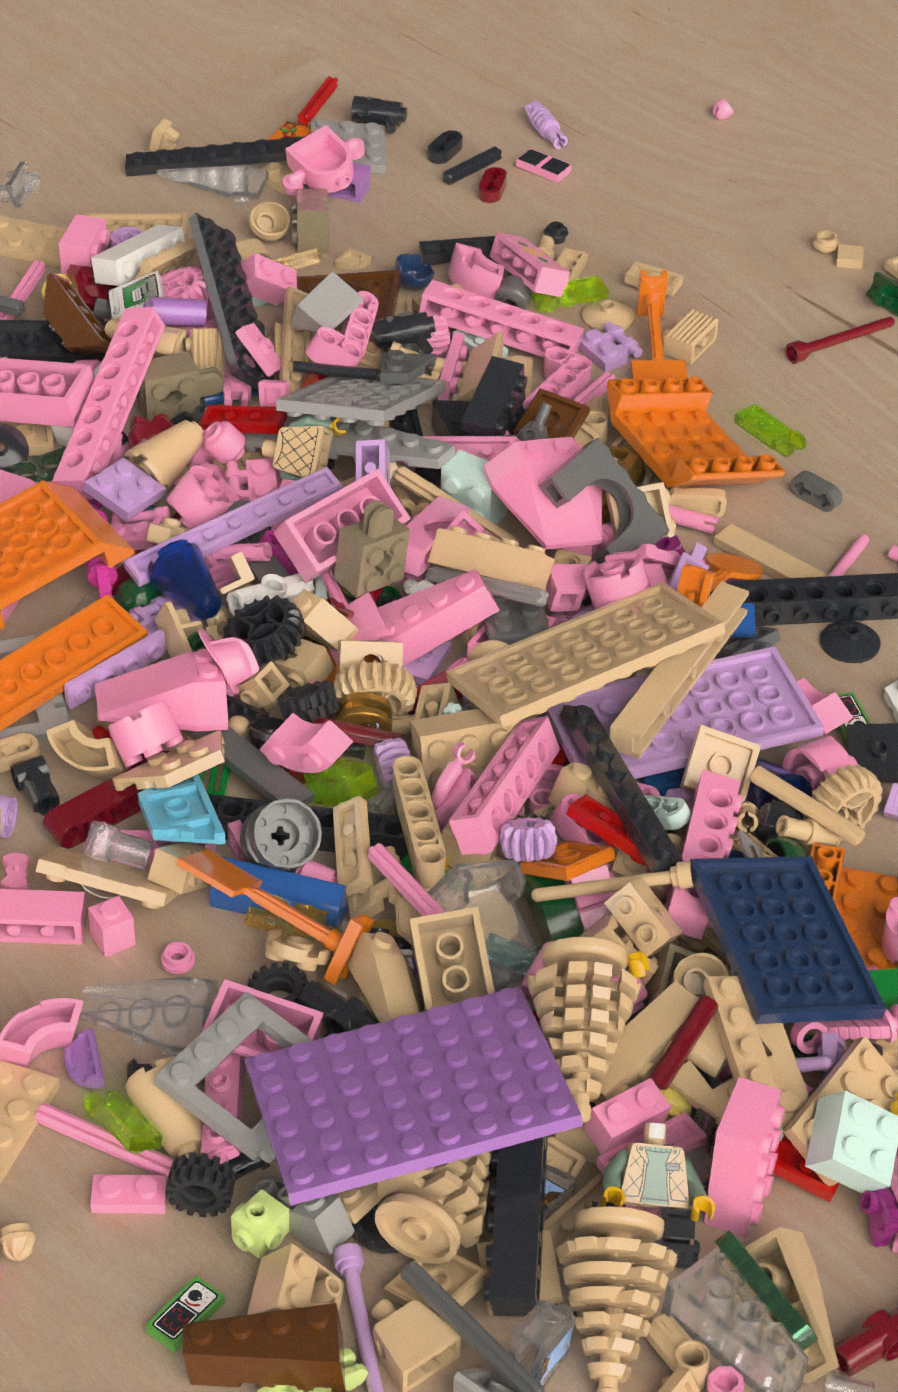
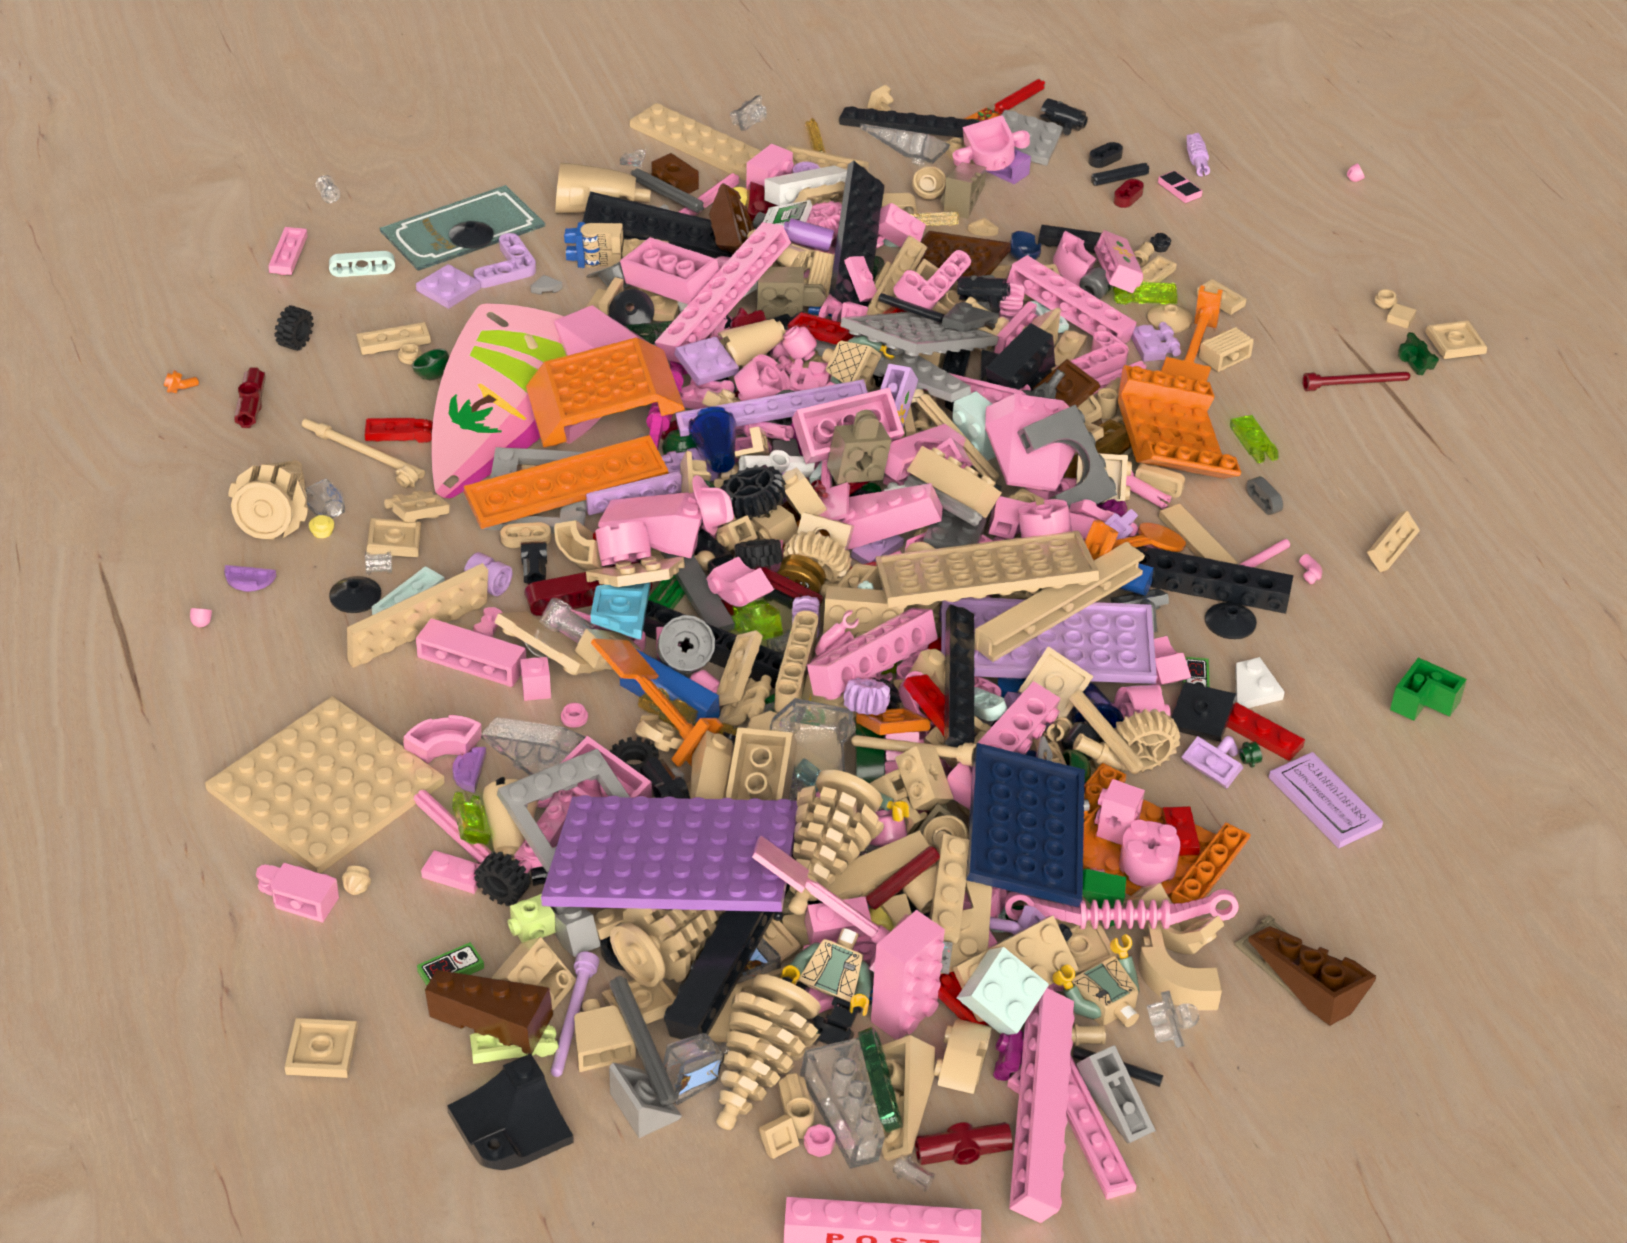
camera: 20 degrees right, 0 degrees up
(107, 195) = (814, 135): none -> clear yellow axle
(326, 305) = (924, 254): light grey slope -> none
(403, 881) = (760, 701): bright pink axle -> none
(700, 1123) = (797, 877): none -> bright pink piece
(838, 1242) = (963, 1056): none -> tan brick
(866, 895) = (1120, 807): none -> bright pink brick

